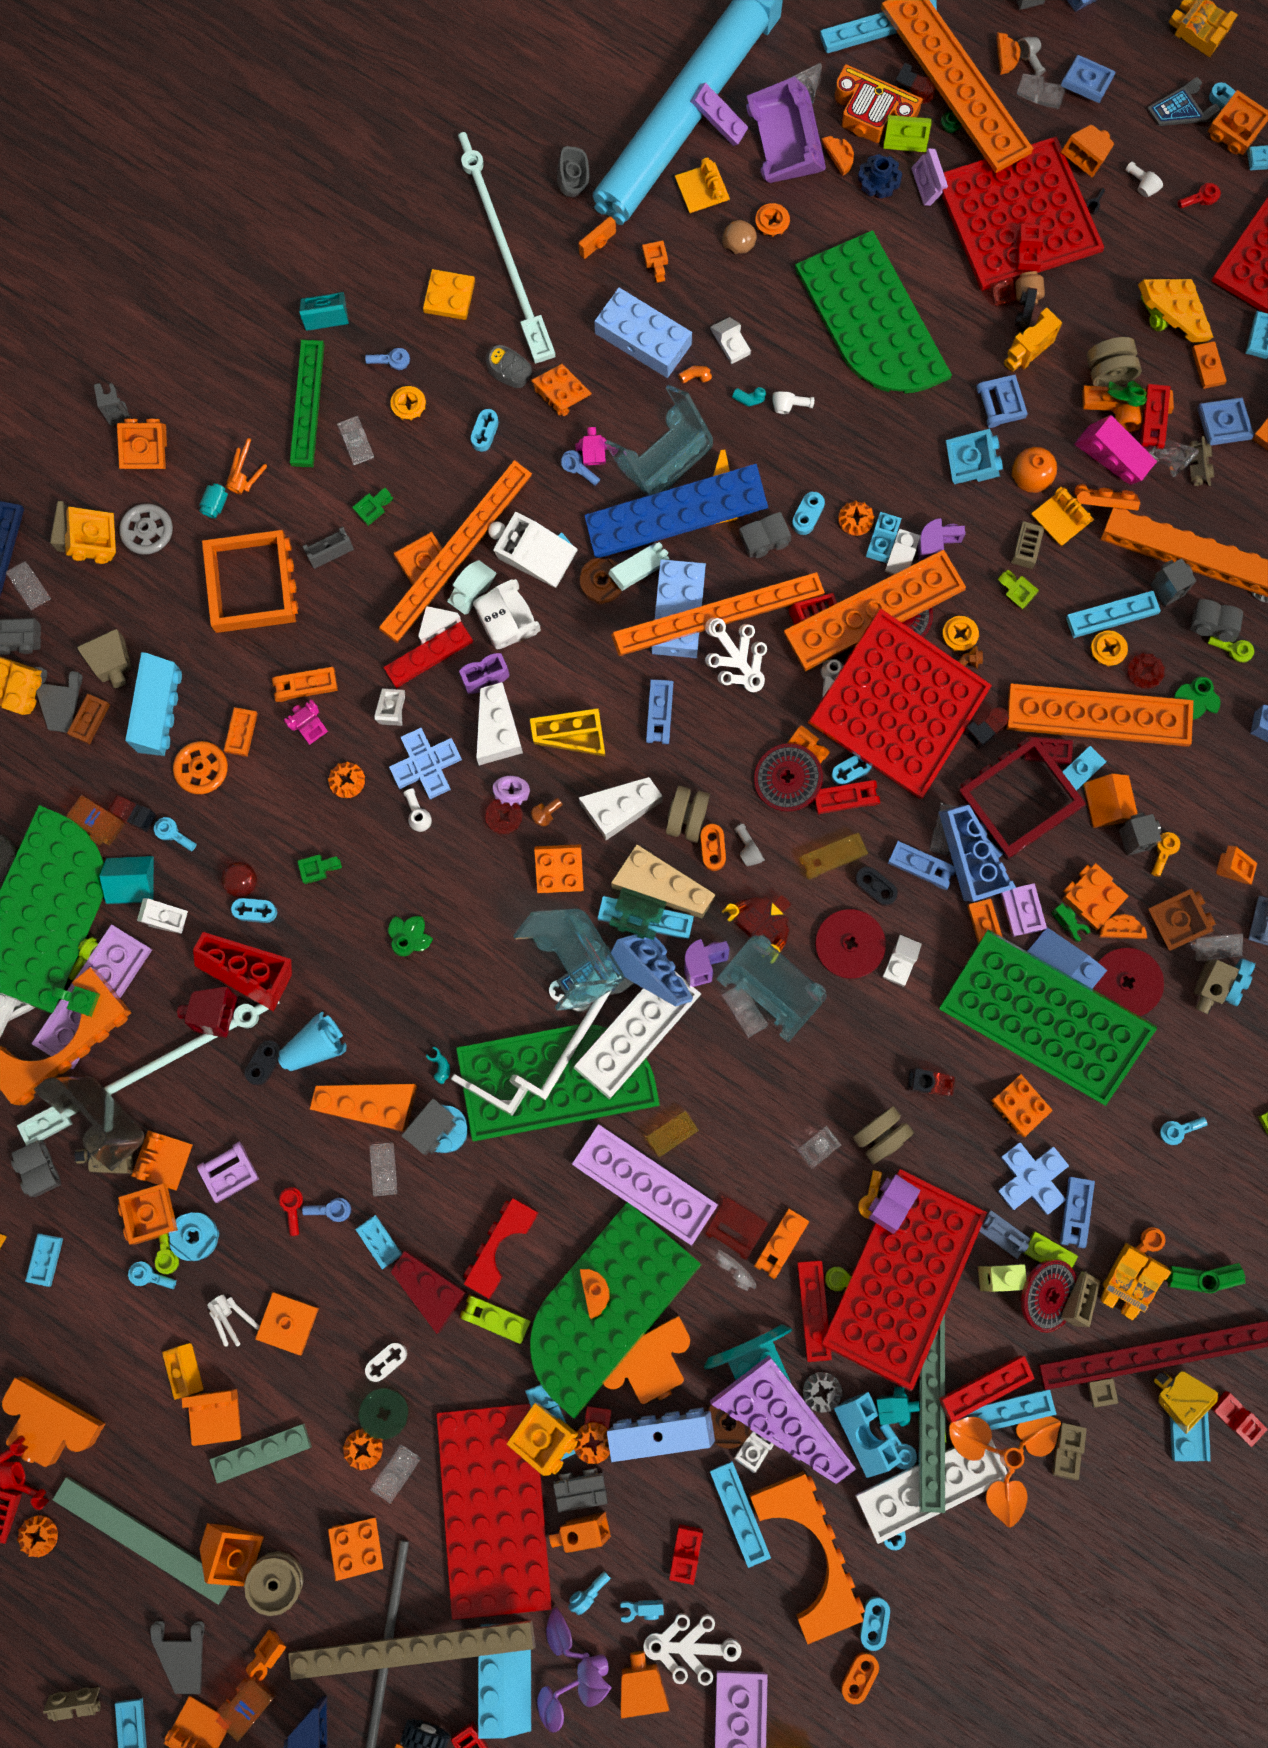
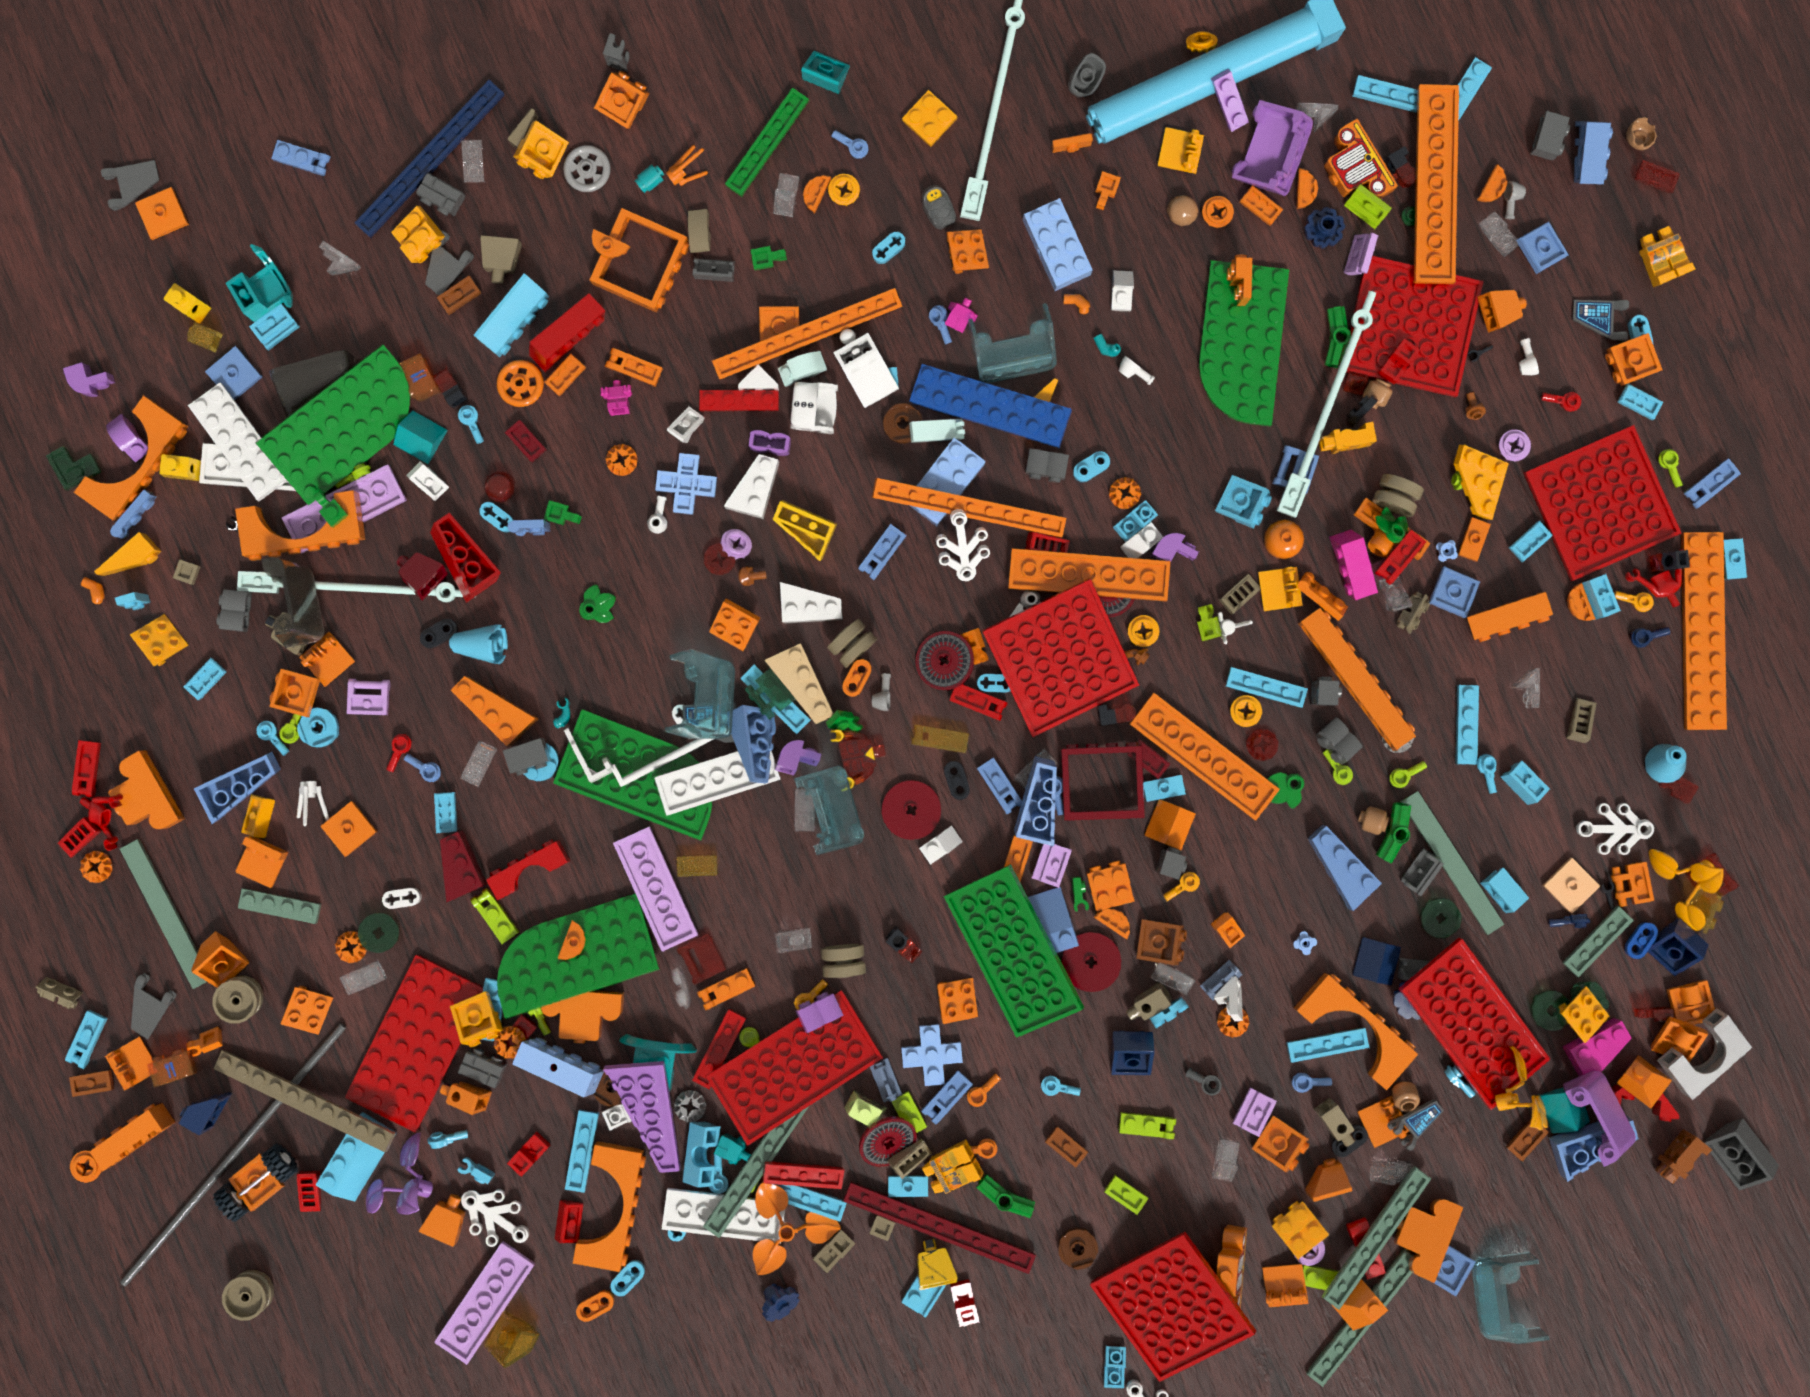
camera: 25 degrees right, 10 degrees up
(138, 1355) = (231, 788): none -> medium blue wedge
(210, 582) = (608, 246): none -> orange plate
(216, 690) = (566, 332): none -> red wedge
(239, 818) = (525, 441): none -> dark red plate
(291, 520) = (699, 230): none -> dark tan slope
(298, 893) = (537, 527): none -> medium blue plate
(381, 420) = (815, 191): none -> orange plate
(606, 1396) = (540, 1018): none -> lime plate
(658, 83) = (1201, 42): none -> light orange gear
(727, 894) = (842, 719): none -> green plate
(773, 1602) = (568, 1221): none -> red slope
(809, 191) = (1261, 205): none -> orange plate
(837, 256) = (1241, 276): none -> orange plate
(964, 271) = (1337, 324): none -> green piece
(1013, 408) = (1298, 484): none -> light aqua bar
(1039, 579) = (1227, 626): none -> white plant
(1050, 1543) = (779, 1302): none -> dark blue plant
(1101, 1331) = (908, 1186): none -> medium azure plate
(1107, 1190) = (977, 1096): none -> orange plate
(1128, 252) = (1474, 411): none -> dark orange plate
(1191, 254) = (1523, 443): none -> lavender gear
(1194, 384) = (1441, 547): none -> light blue plate
(1230, 1047) = (1132, 1053): none -> dark blue slope
(1230, 1185) = (1066, 1146): none -> dark orange plate

